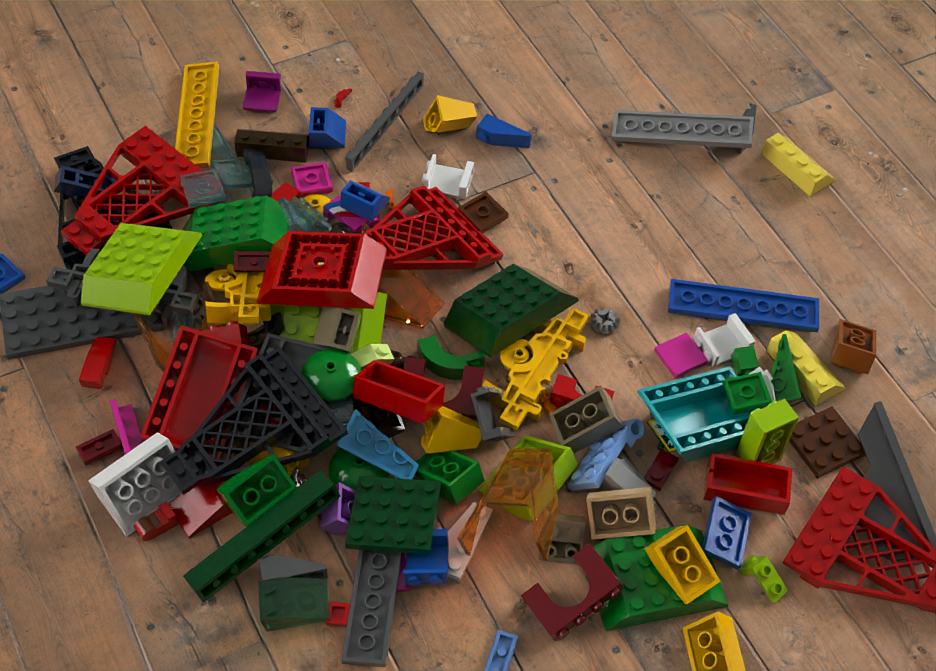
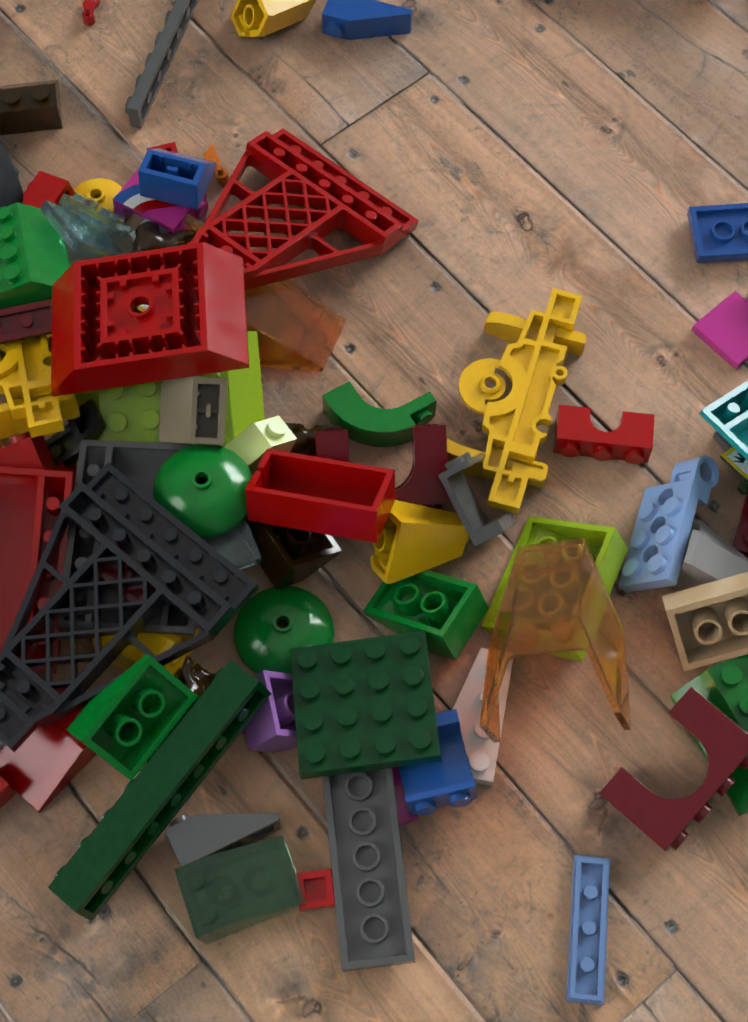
camera: 10 degrees left, 10 degrees up
(312, 179) = (80, 155): dark pink tile -> none
(326, 129) = (82, 65): blue slope -> none
(375, 448) = (307, 597): dark azure wing -> none
(449, 180) = (300, 112): white panel -> none
(484, 212) = (369, 155): reddish brown plate -> none
(506, 308) = (449, 313): dark green slope -> none
(548, 406) = (558, 462): orange piece -> none
(566, 538) = (648, 677): dark tan slope -> none
(586, 420) = (625, 474): dark tan brick -> none
(607, 327) = (591, 298): light grey gear -> none

